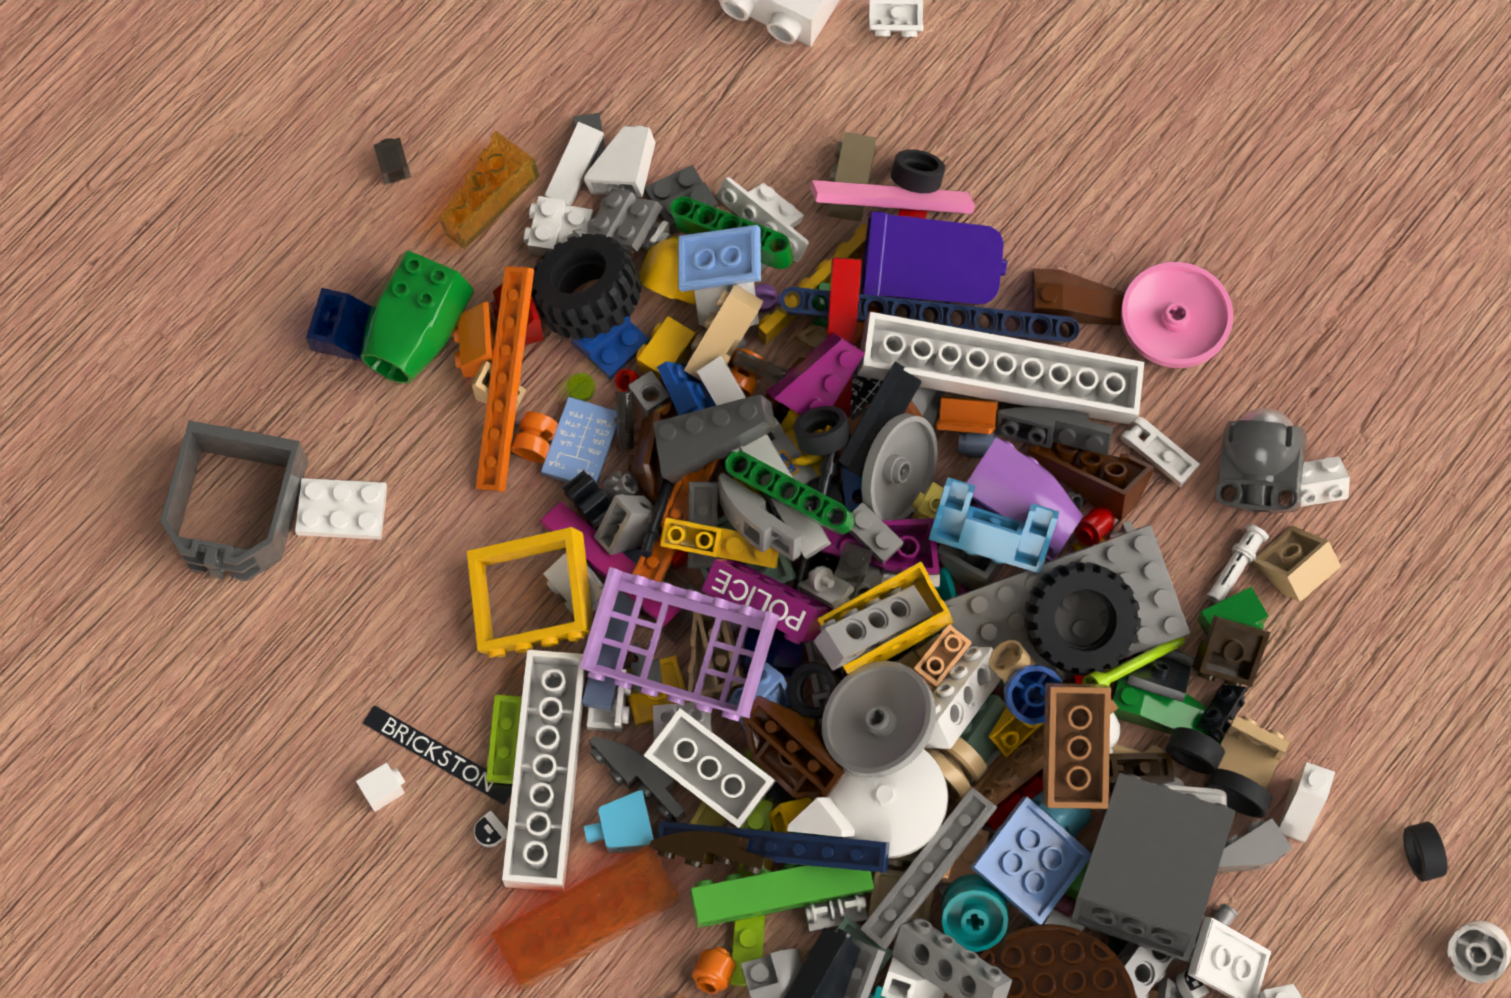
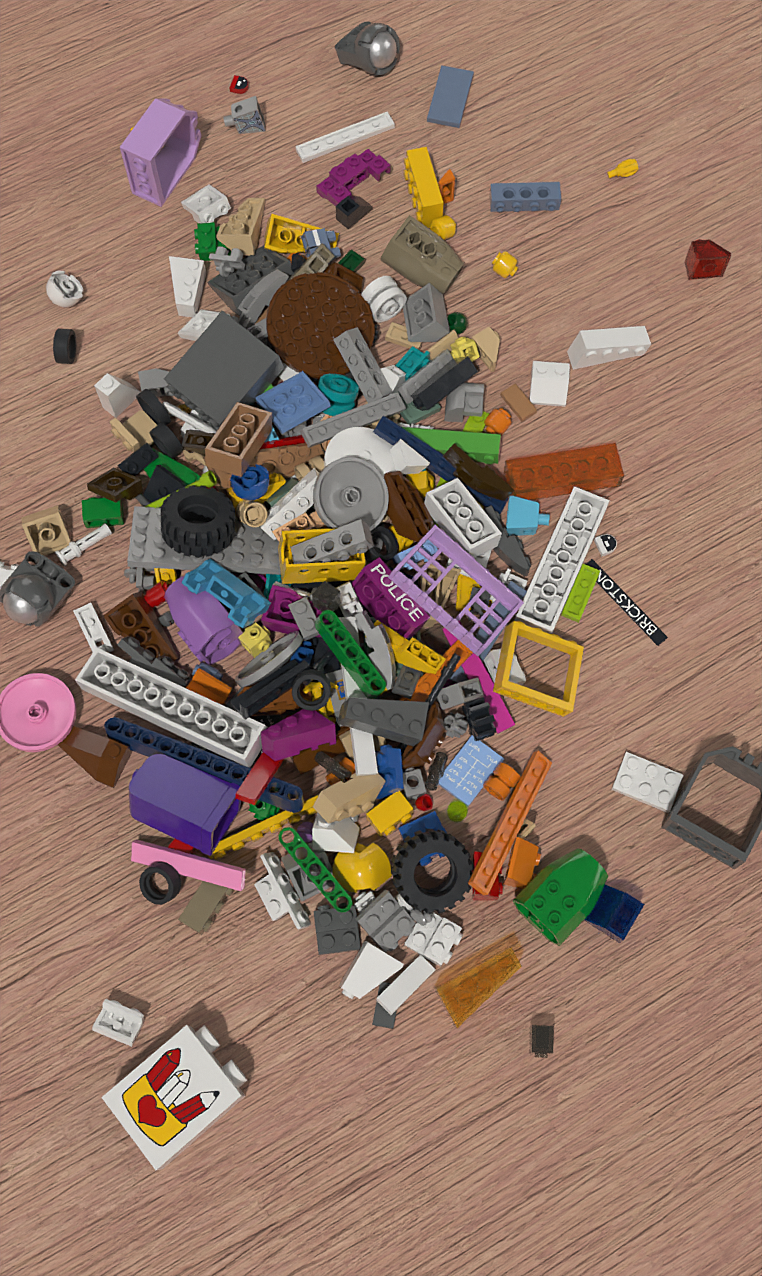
camera: 160 degrees left, 0 degrees up
(381, 786) = (667, 589): white brick -> none
(719, 258) = (332, 844): light blue tile -> none

